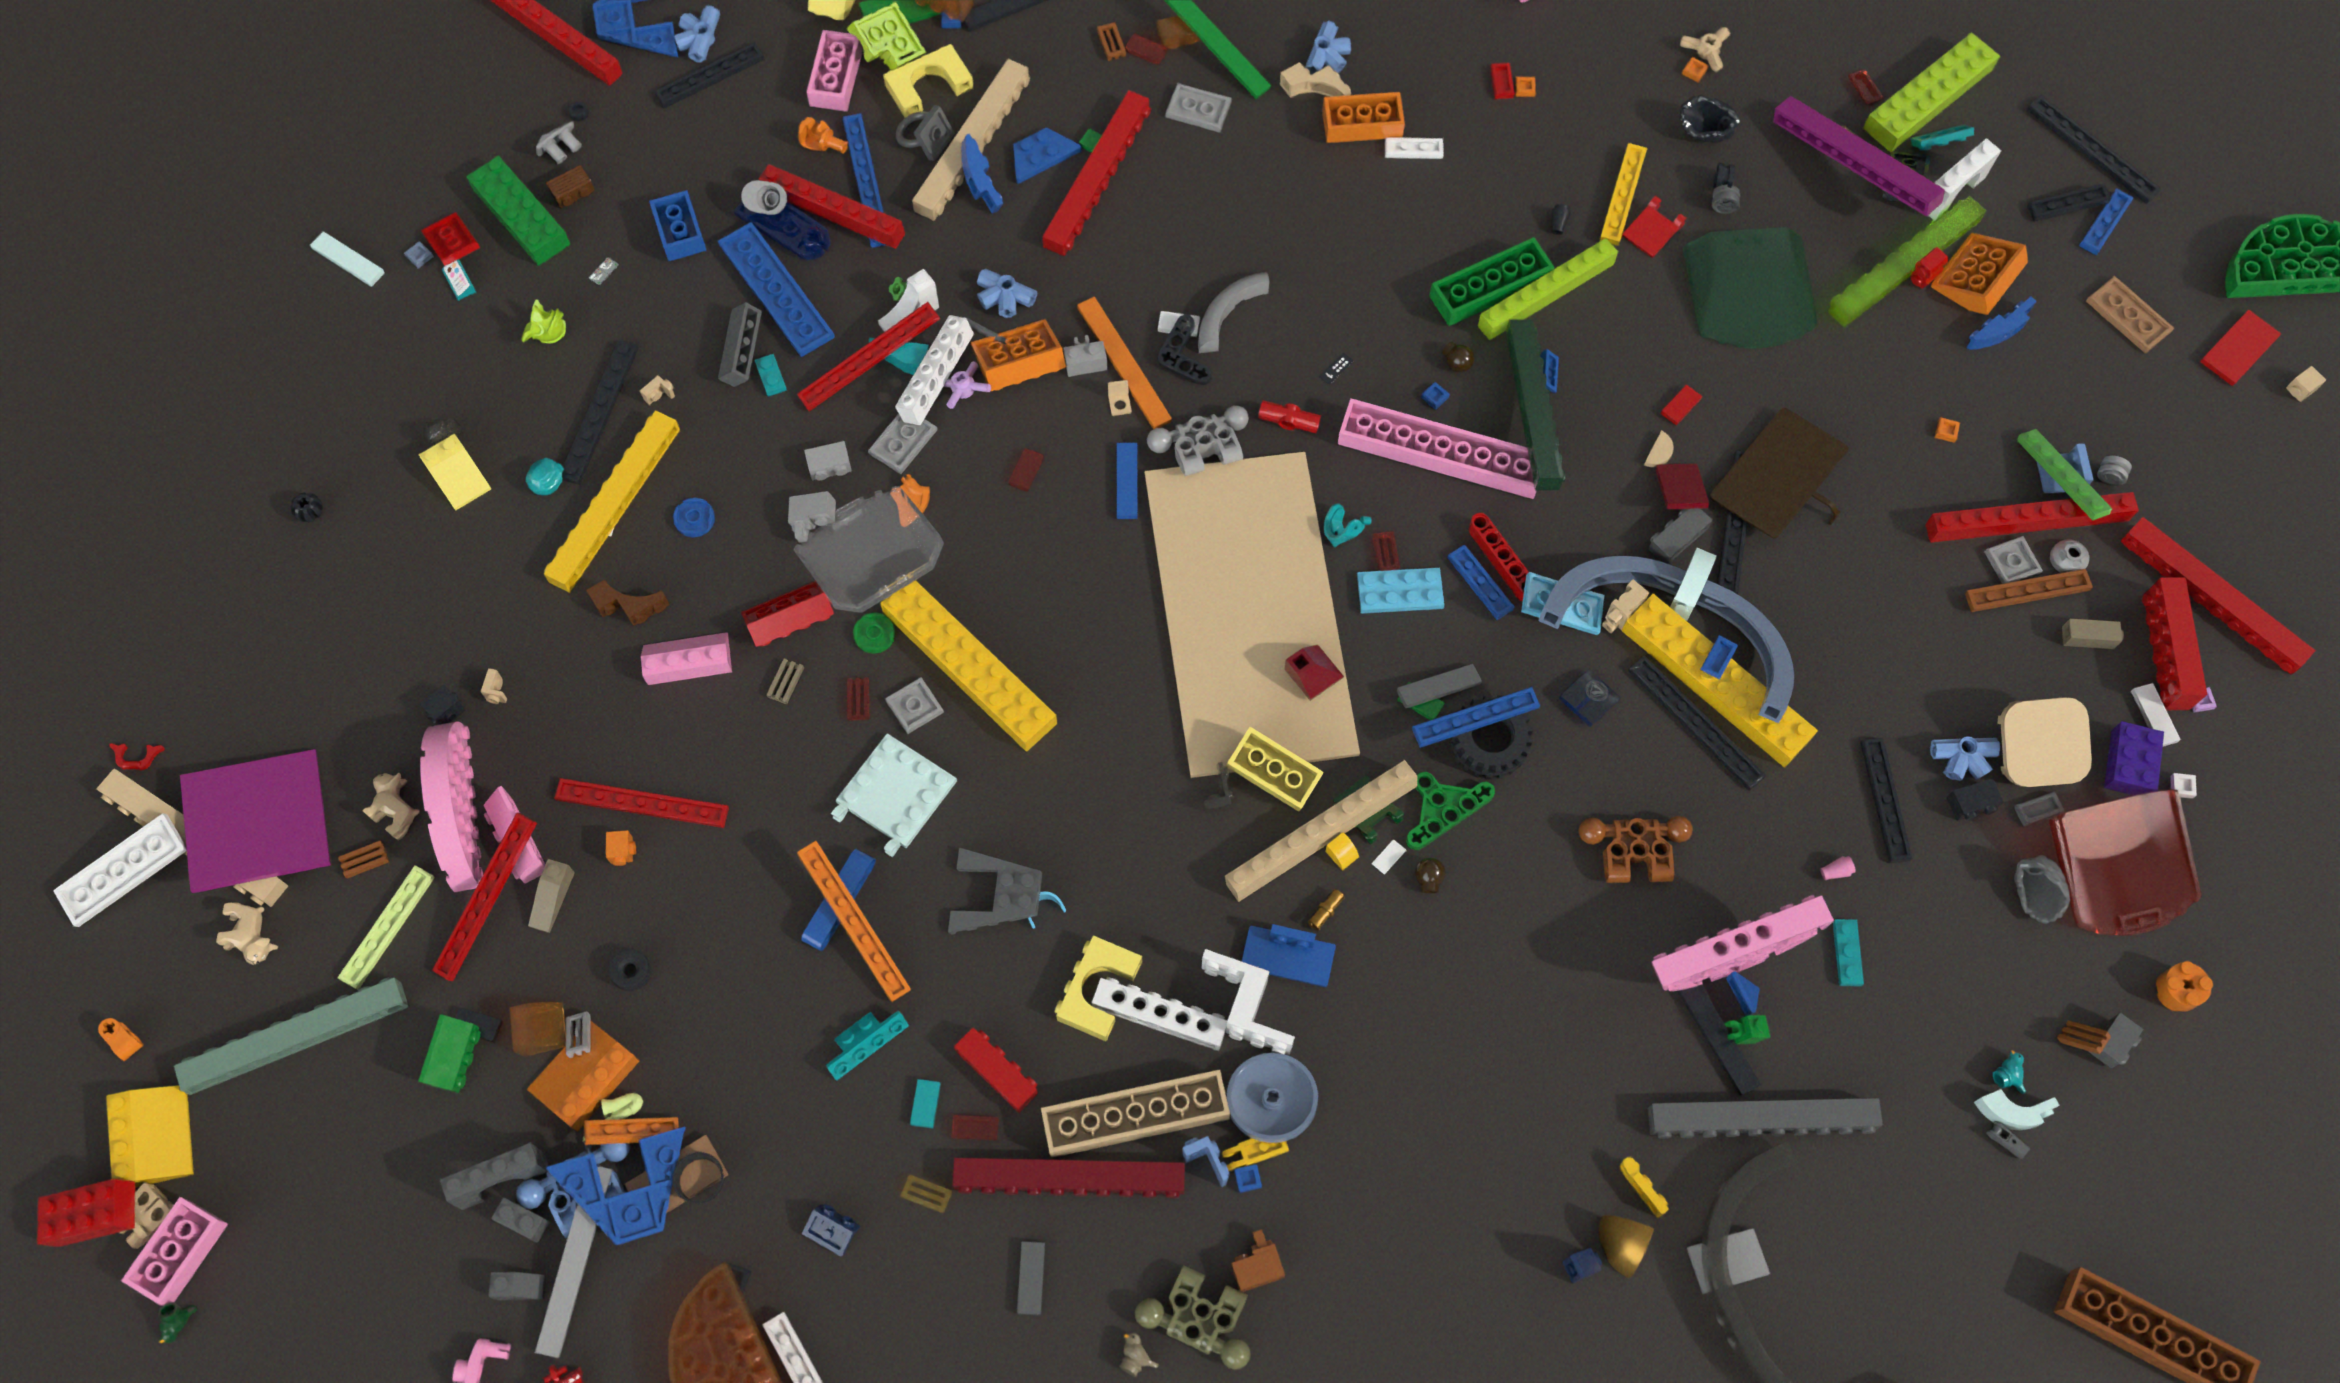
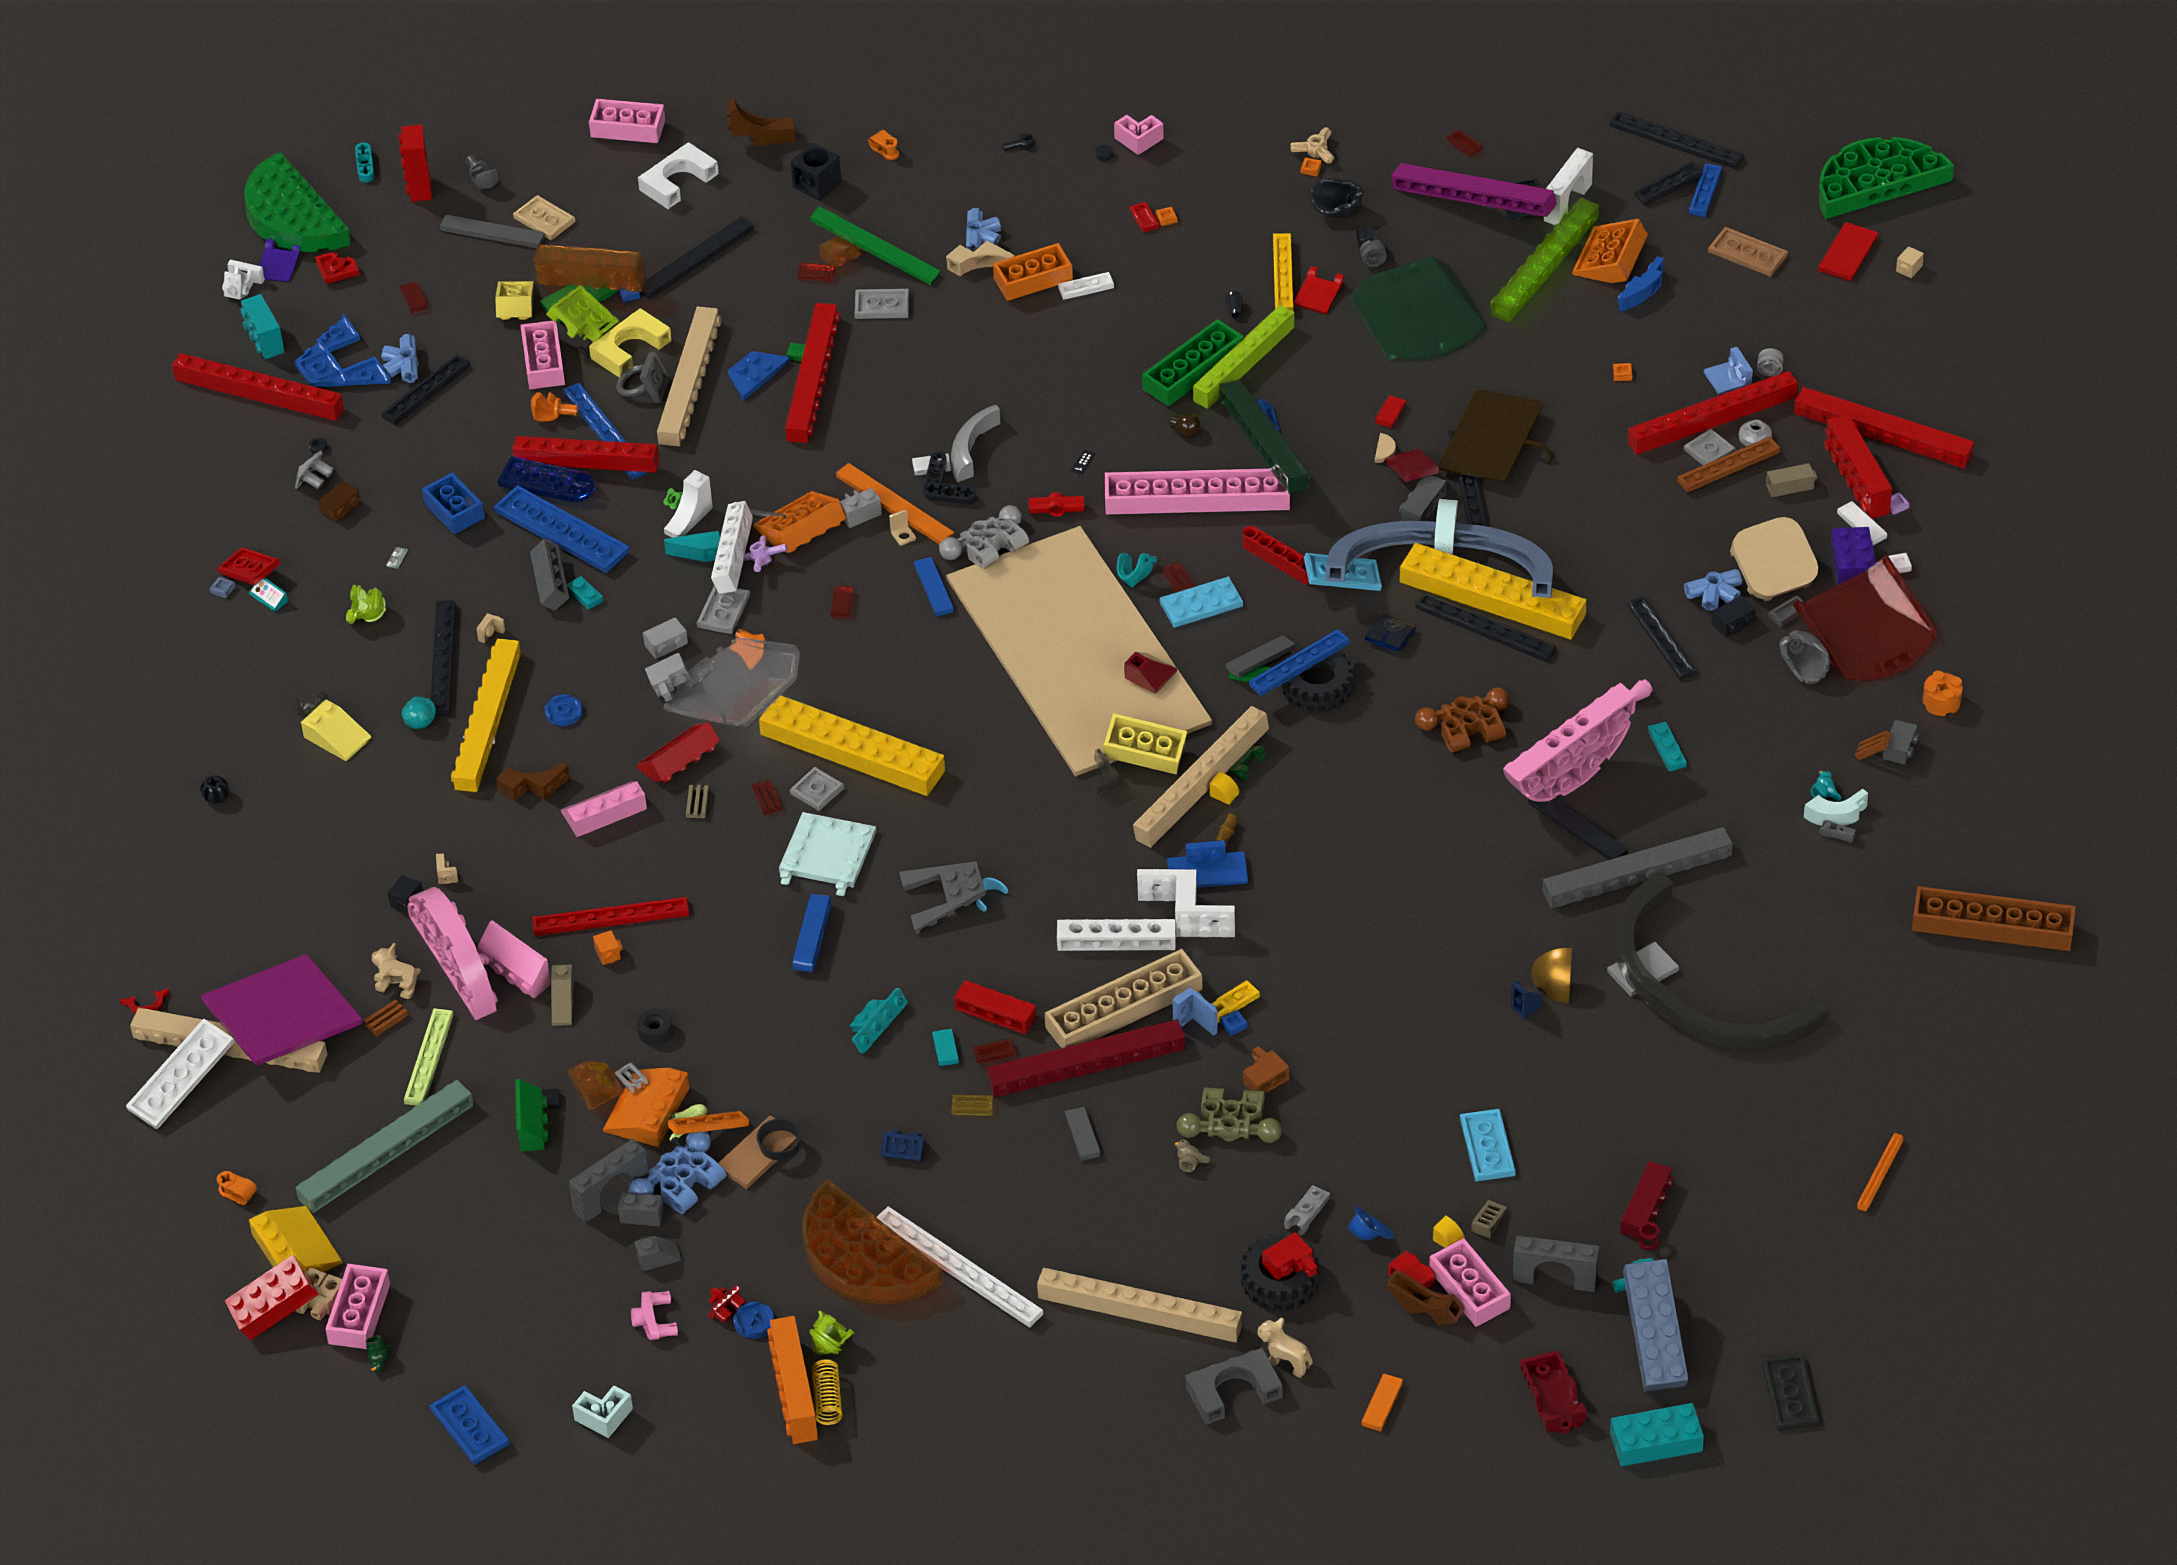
camera: 15 degrees left, 20 degrees down
(246, 933) = (309, 1090): tan animal -> none
(347, 259) = (158, 606): light aqua tile -> none
(484, 896) = (510, 1003): red tile -> none
(518, 210) = (300, 530): green brick -> none
(569, 1278) = (699, 1219): light grey tile -> none
(630, 1213) = (730, 1174): blue wing -> none
(764, 197) = (525, 459): light grey piece -> none
(853, 921) = (833, 937): orange plate -> none
(868, 356) = (669, 552): red tile -> none
(874, 633) = (759, 749): green tile -> none
(974, 168) = (704, 395): blue slope -> none
(1007, 298) = (767, 478): medium blue piece -> none
(1098, 957) = (1048, 951): light yellow arch -> none
(1114, 53) = (779, 276): dark orange tile -> none
(1272, 1097) = (1232, 959): sand blue dish -> none
(1389, 856) = (1264, 785): white sticker -> none
(1430, 875) = (1303, 784): dark brown piece -> none
(1435, 395) = (1176, 459): blue tile -> none
(1435, 813) = (1302, 731): green beam -> none
(1480, 582) = (1267, 578): blue tile -> none
(1622, 609) = (1394, 557): tan hips -> none
(1643, 1187) = (1556, 938): yellow hinge -> none
(1719, 657) = (1485, 569): blue tile -> none
(1745, 992) = (1590, 793): blue slope -> none
(1749, 1029) = (1603, 813): green brick -> none
(1929, 267) = (1564, 257): red brick -> none
(1931, 92) = (1522, 131): lime brick -> none
(1942, 137) = (1543, 163): teal plate -> none
(2064, 474) = (1728, 373): bright green plate -> none

